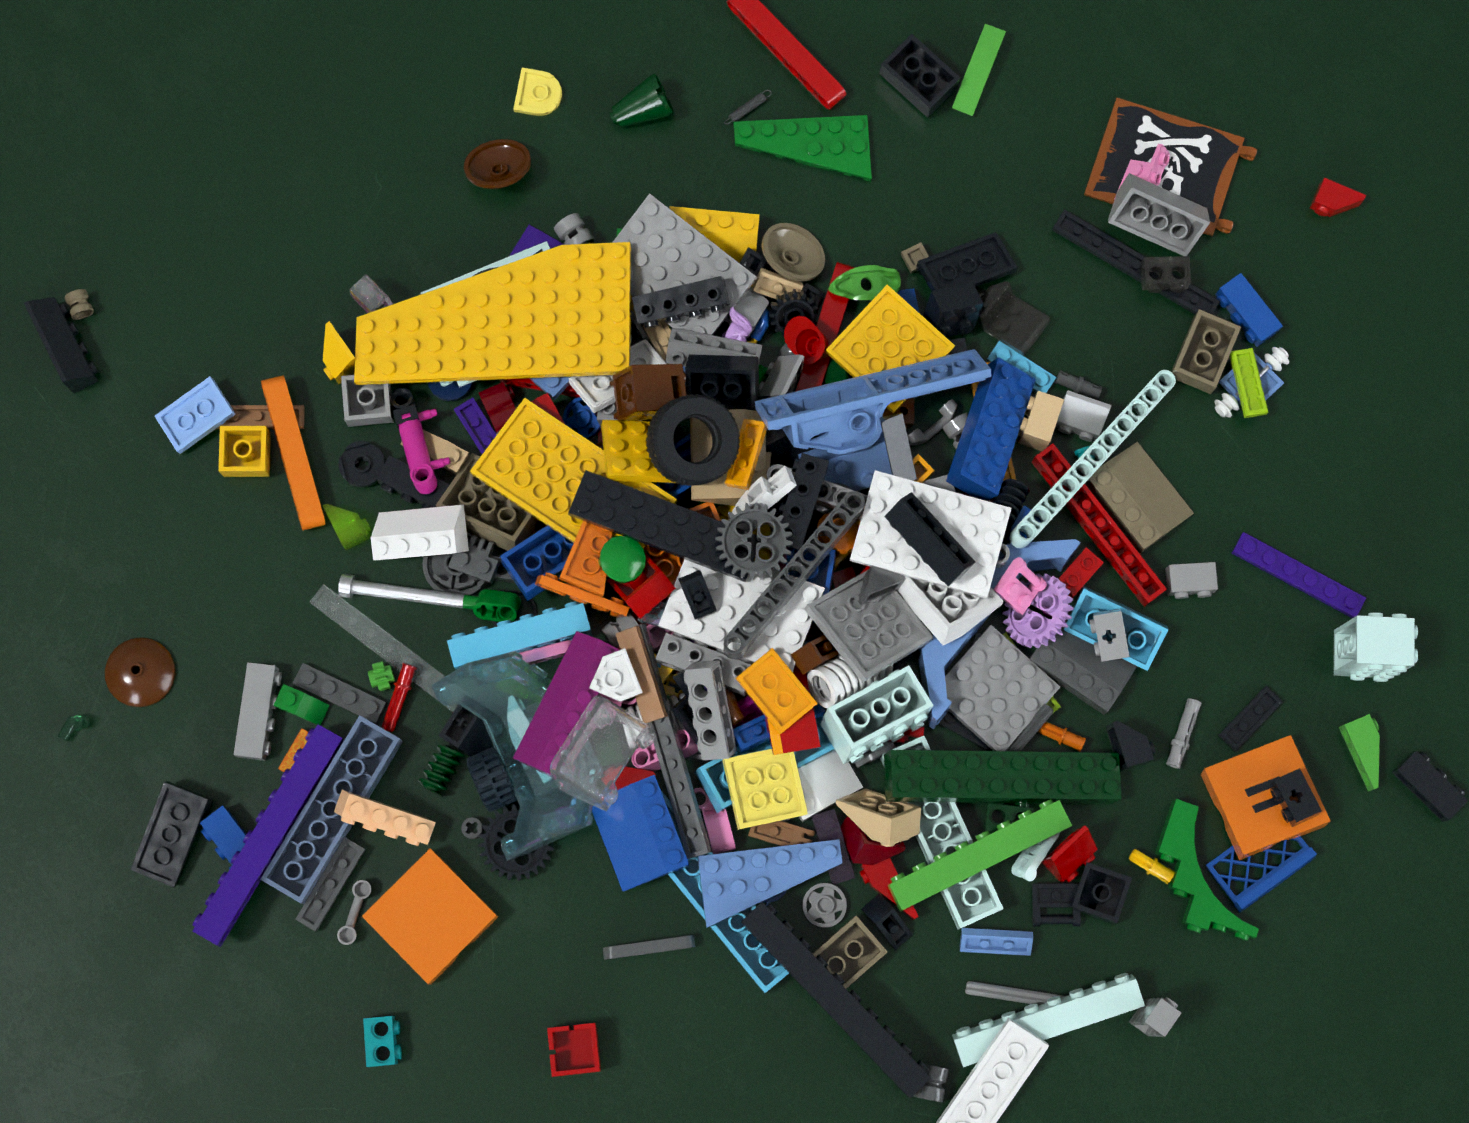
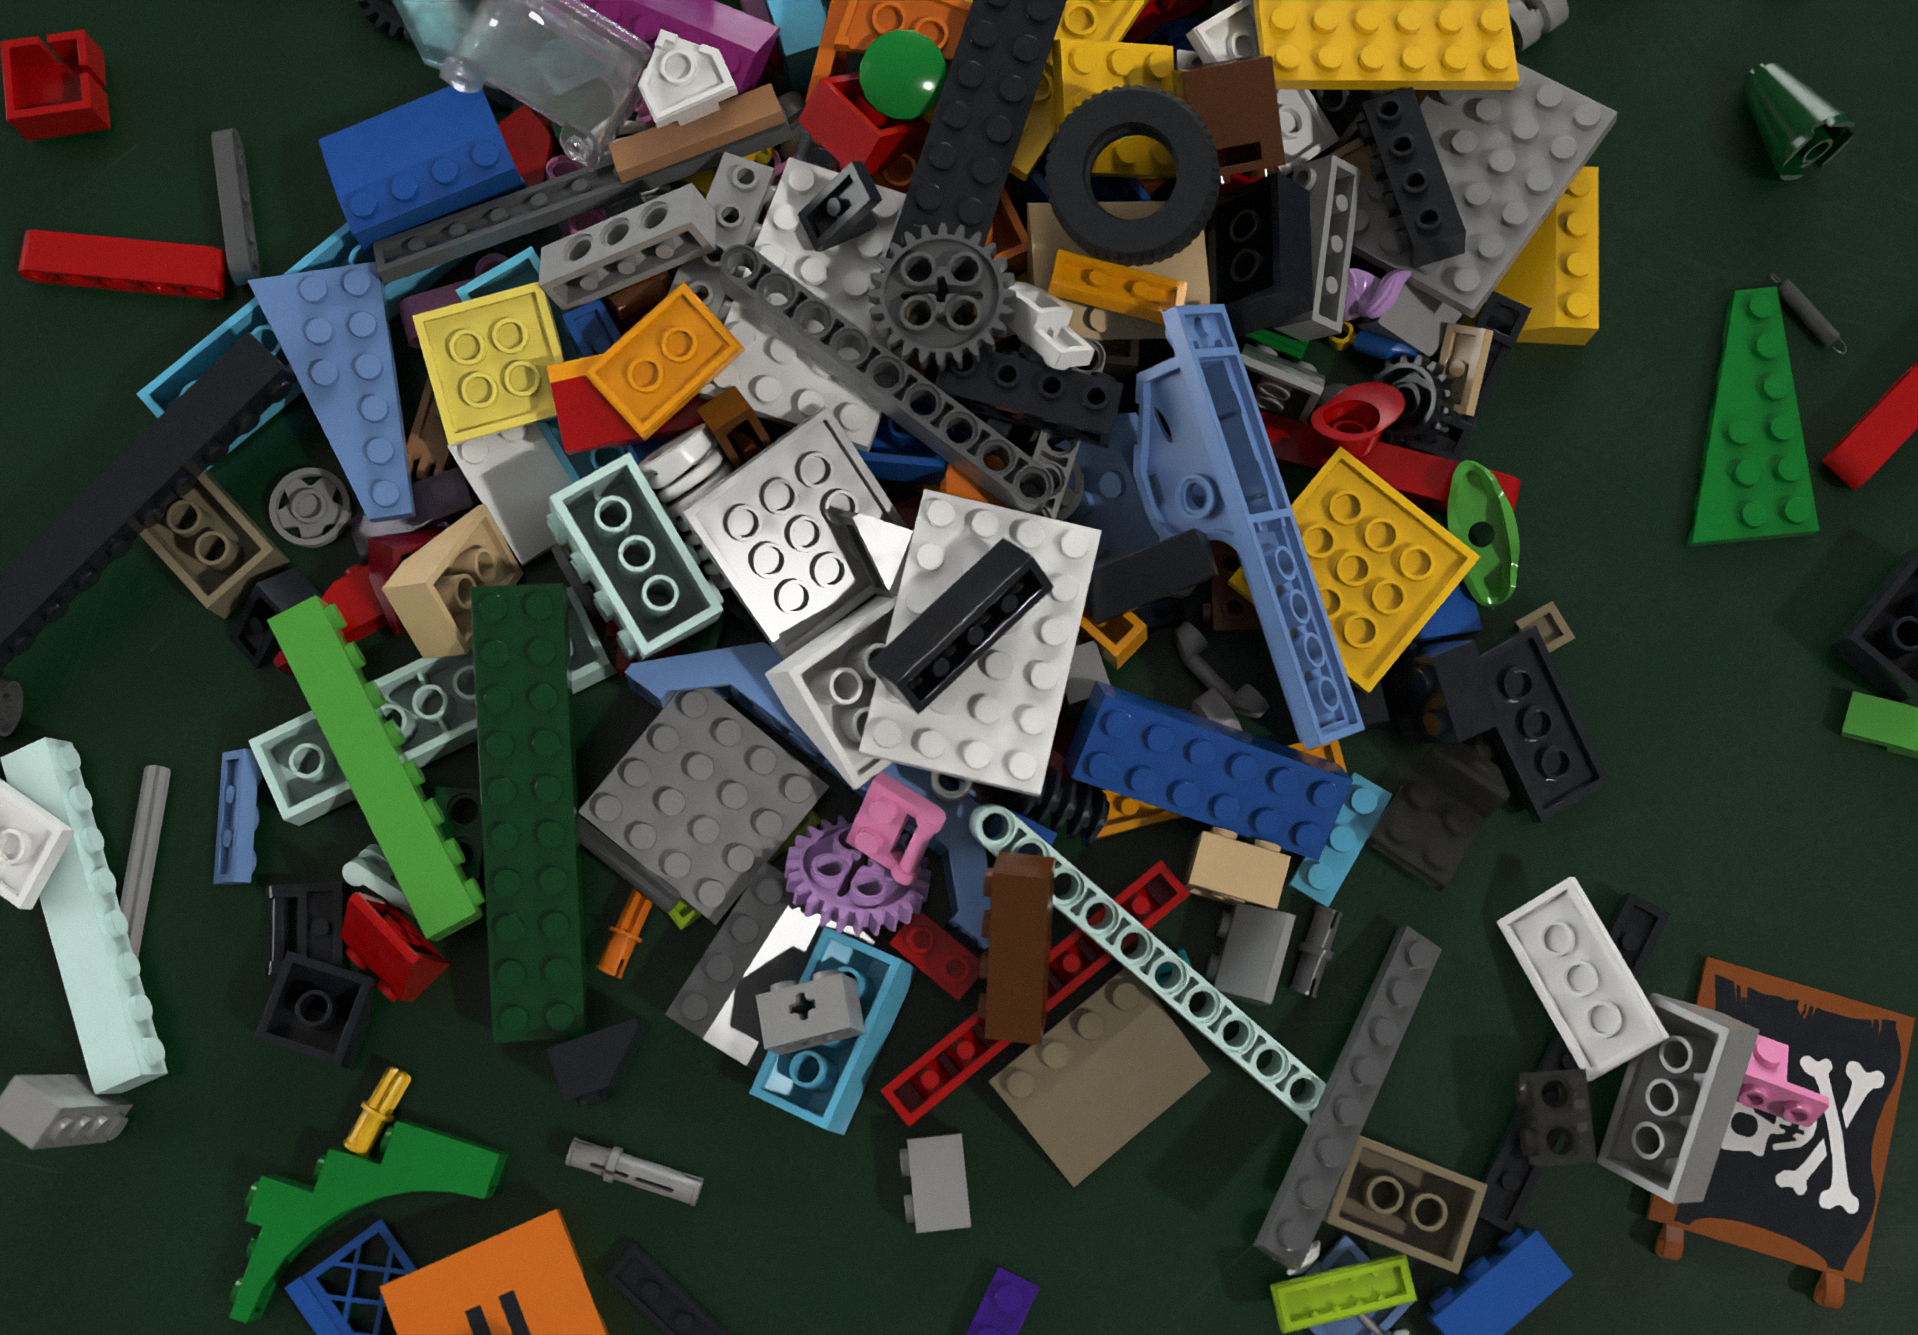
camera: 90 degrees right, 0 degrees up
(680, 1010) = (123, 264): none -> red beam
(793, 252) = (1548, 398): dark tan dish -> none
(1085, 524) = (1018, 947): none -> reddish brown brick
(1098, 255) = (1582, 979): none -> white tile
(1154, 372) = (1347, 1099): none -> dark grey plate

